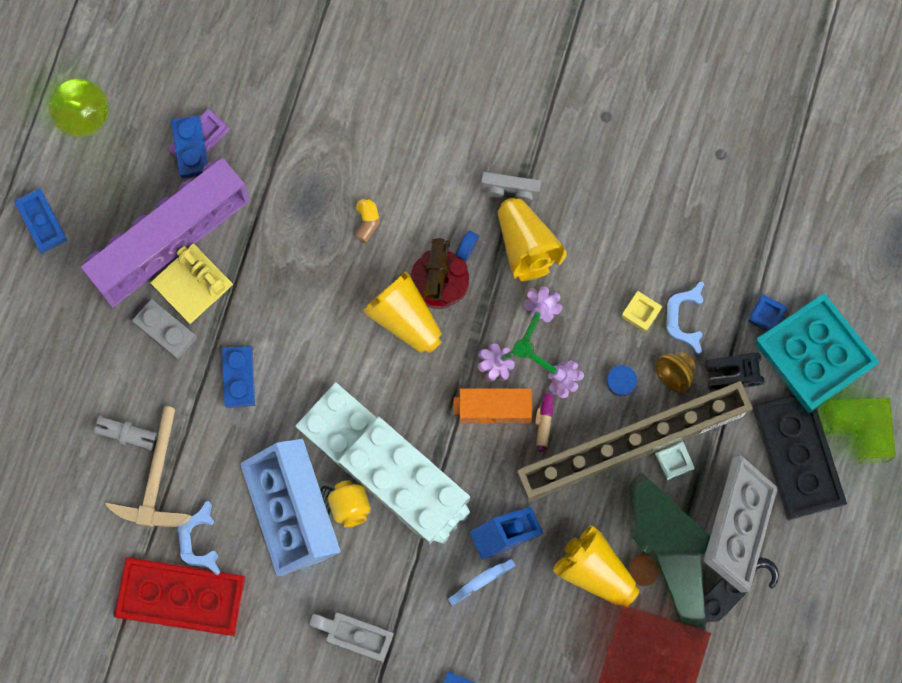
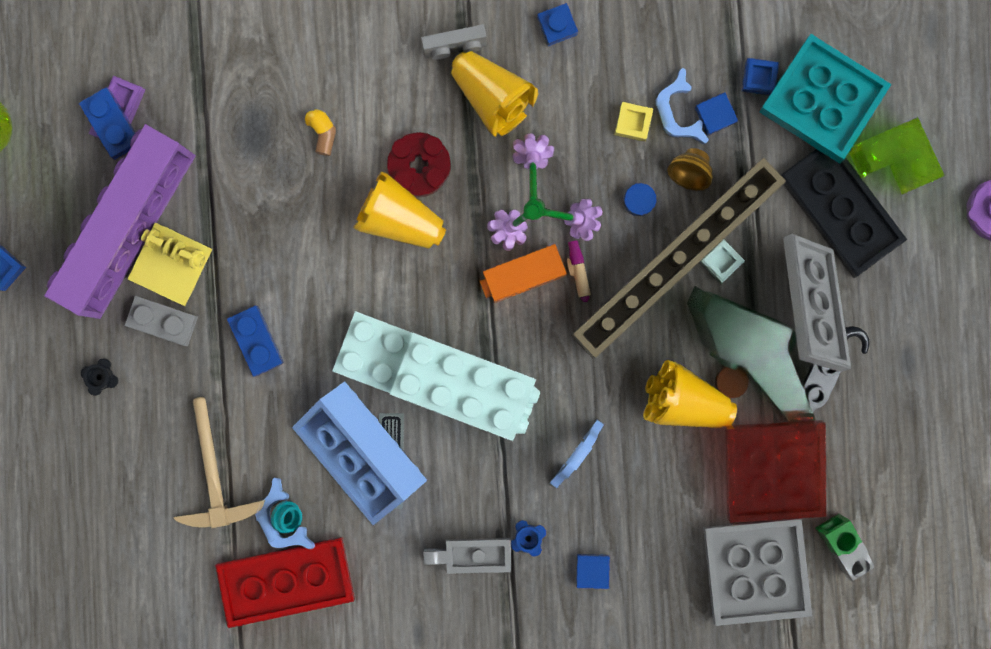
camera: 20 degrees left, 10 degrees up
(86, 350) = (90, 373): none -> black plate
(125, 433) = (164, 441): light grey pin -> none
(210, 541) = (292, 520): none -> teal plate
(349, 504) = (416, 428): yellow head -> none
(410, 649) = (533, 546): none -> blue plate
(437, 269) = (412, 156): dark brown pin -> none
(467, 245) = (433, 120): blue tile -> none
(506, 532) = (583, 397): blue slope -> none
(606, 204) = (557, 24): none -> blue plate
(717, 332) = (716, 114): none -> blue tile
(740, 364) = (759, 139): black piece -> none

